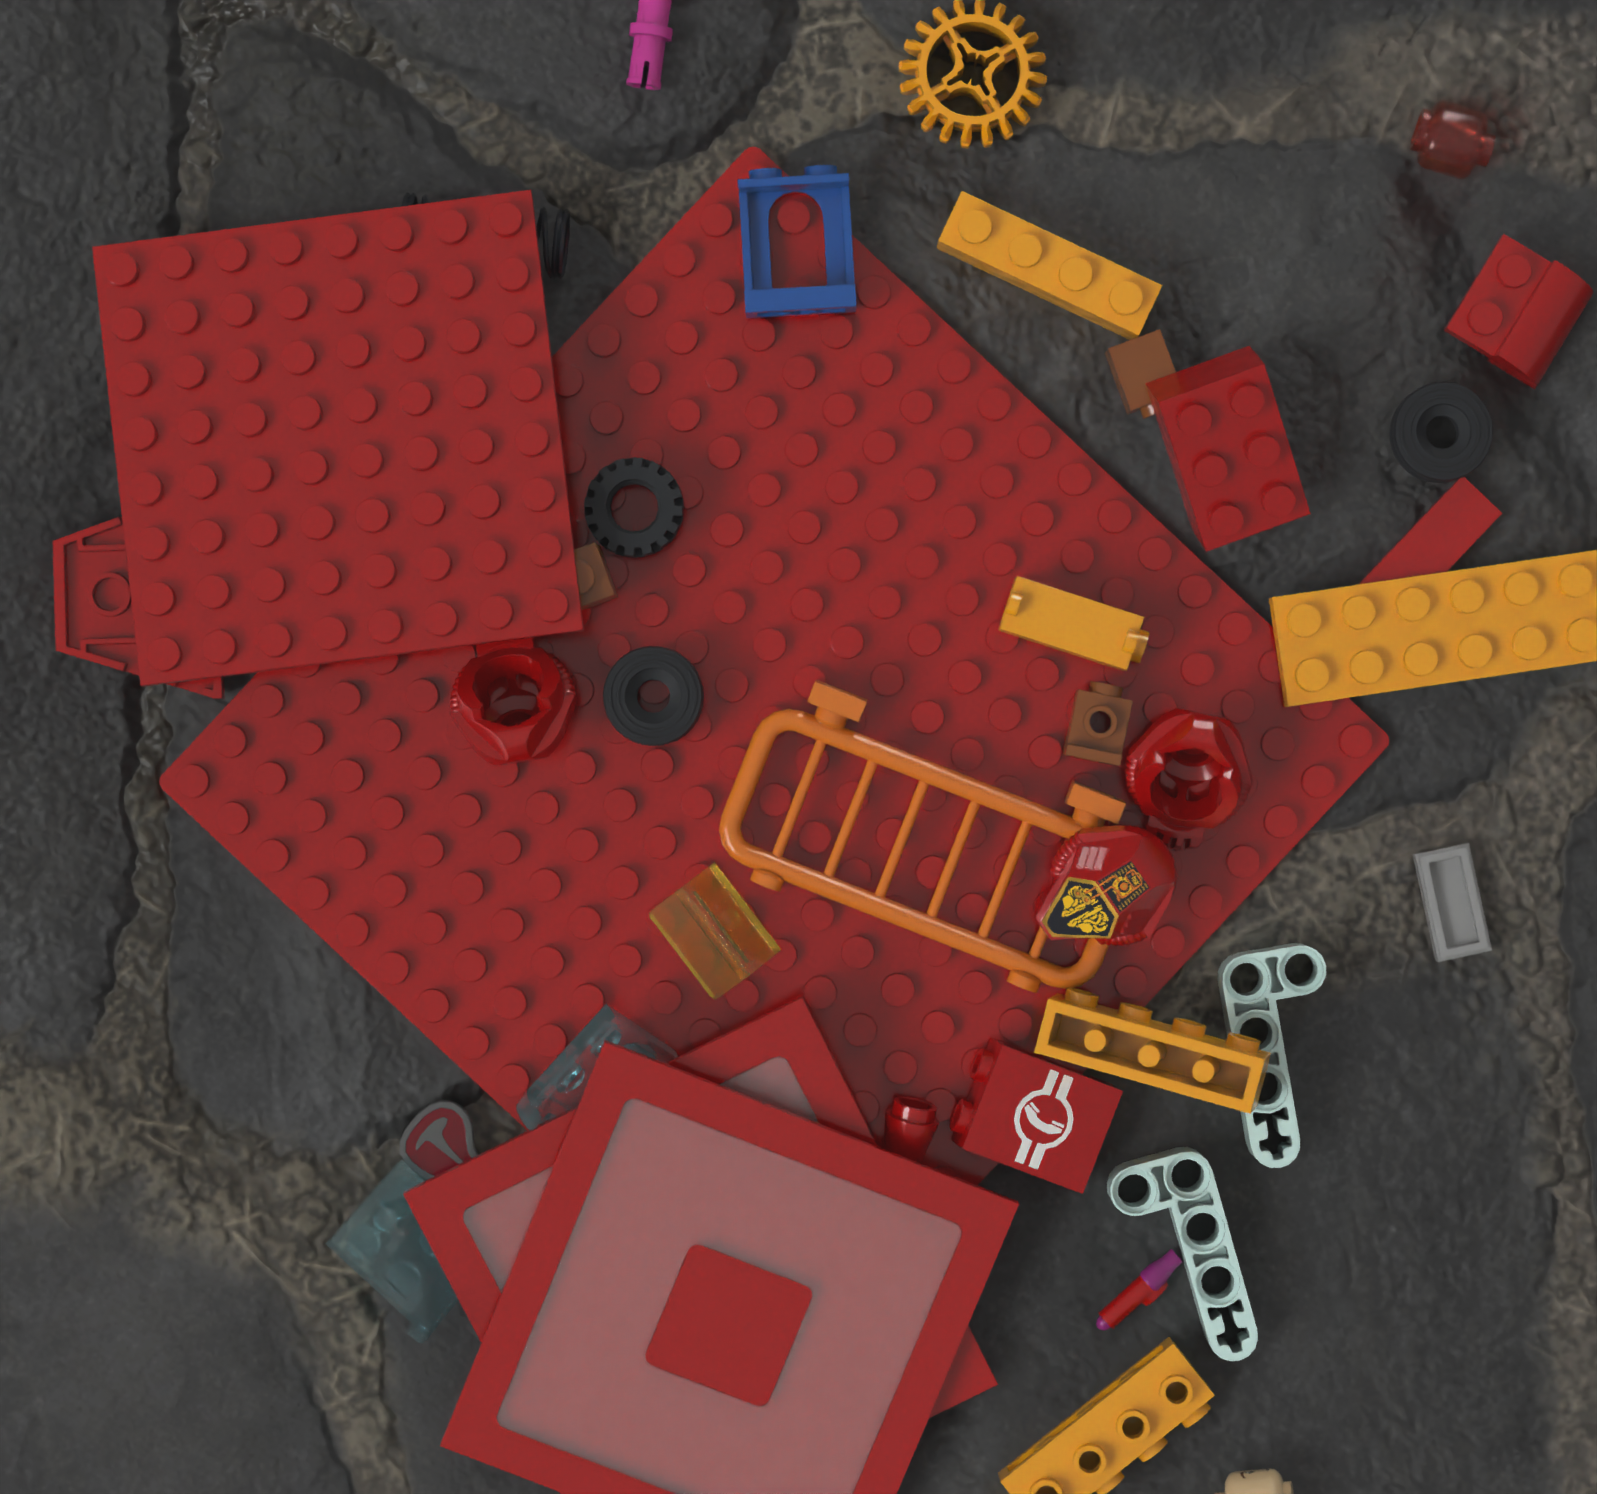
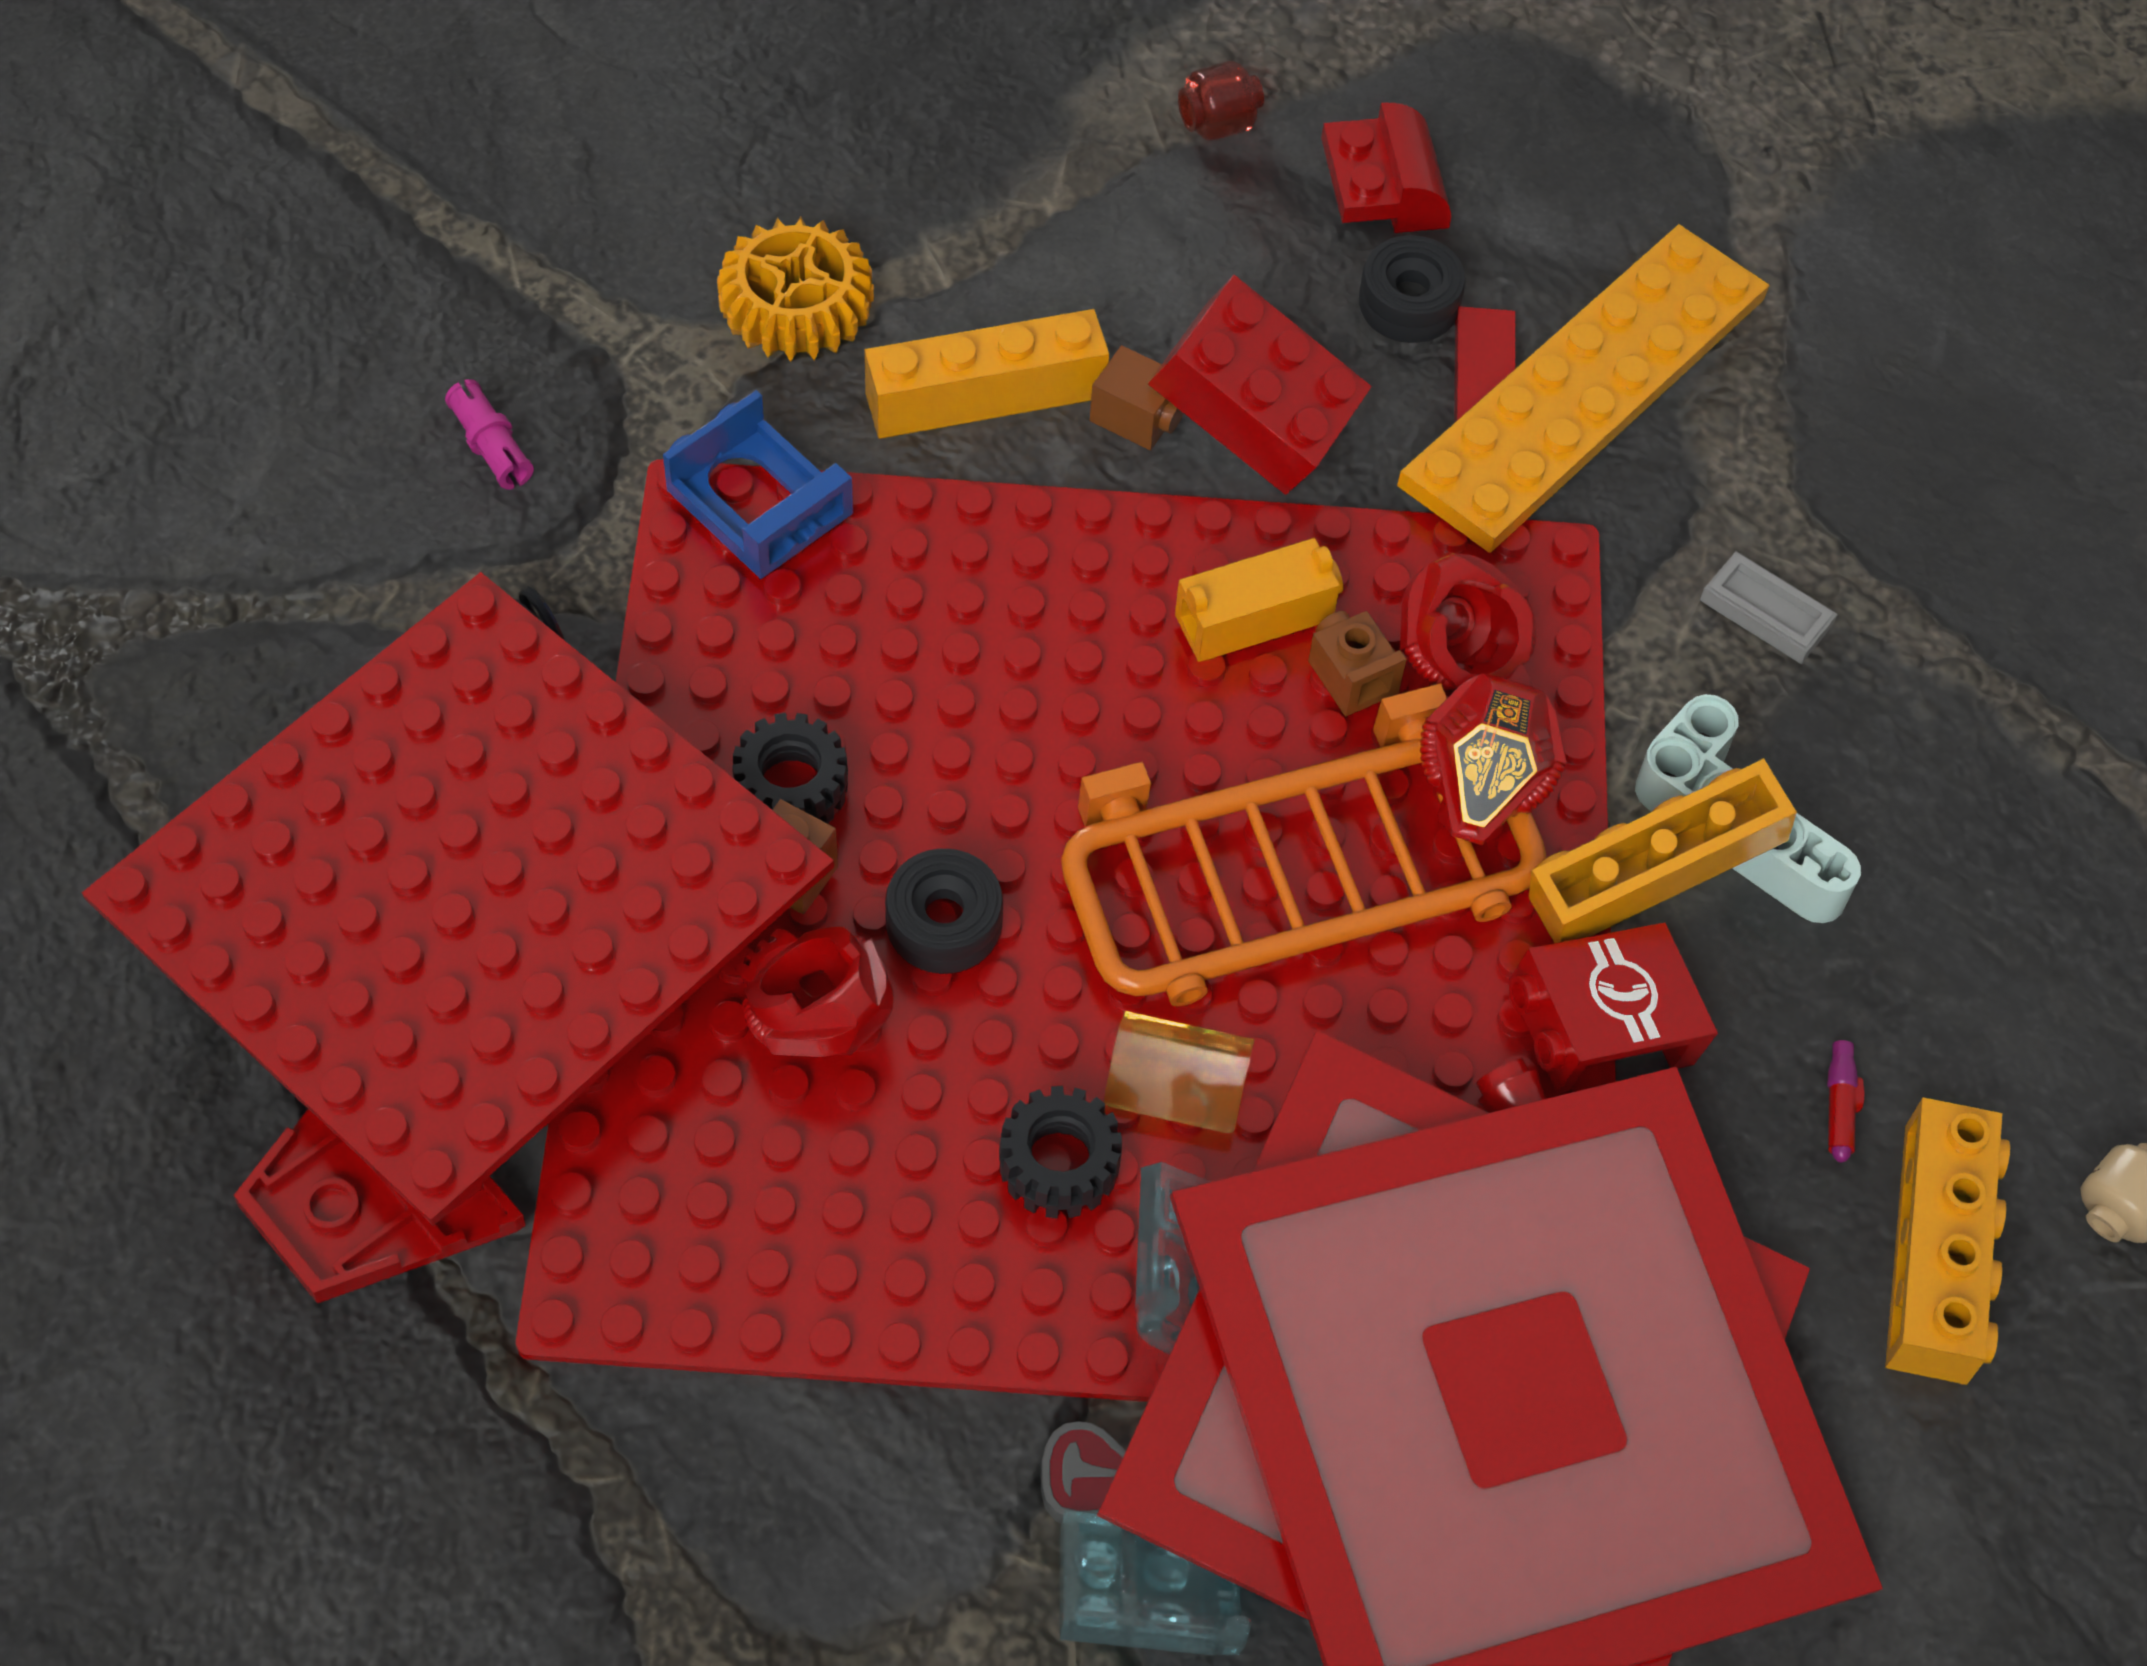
camera: 40 degrees left, 30 degrees down
(554, 943) = (1066, 1116): none -> black tyre
(1197, 1255) = (1947, 1073): light aqua beam -> none

